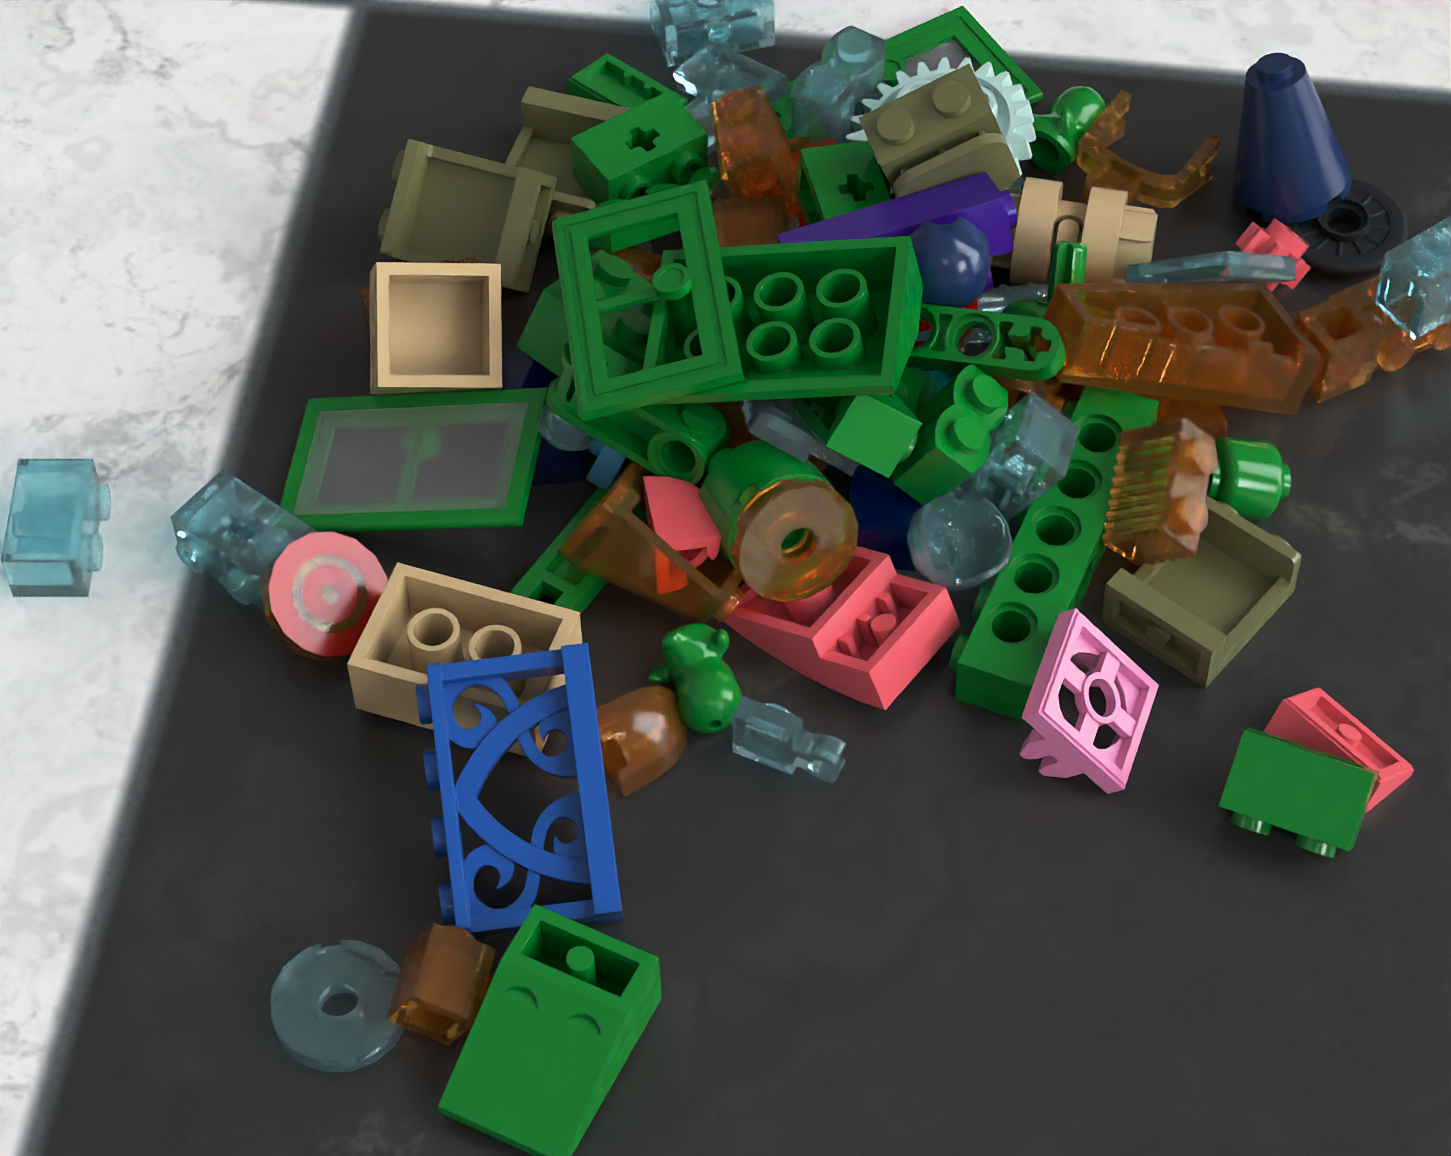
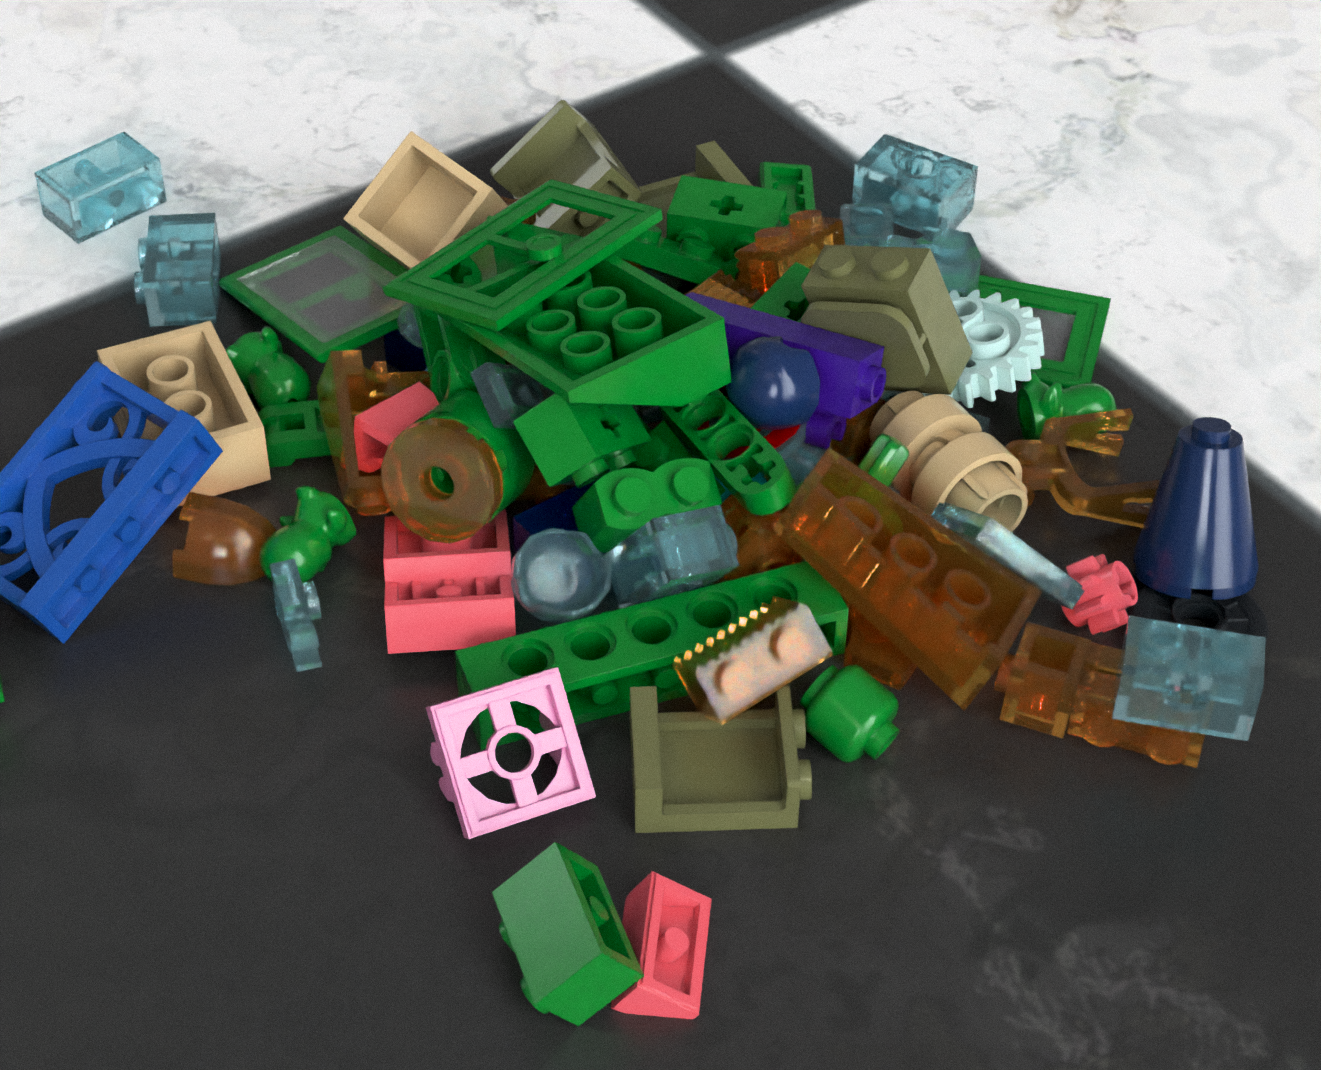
camera: 45 degrees right, 10 degrees down
(322, 594) = (165, 302): tile -> none
(473, 562) = (267, 370): none -> green animal

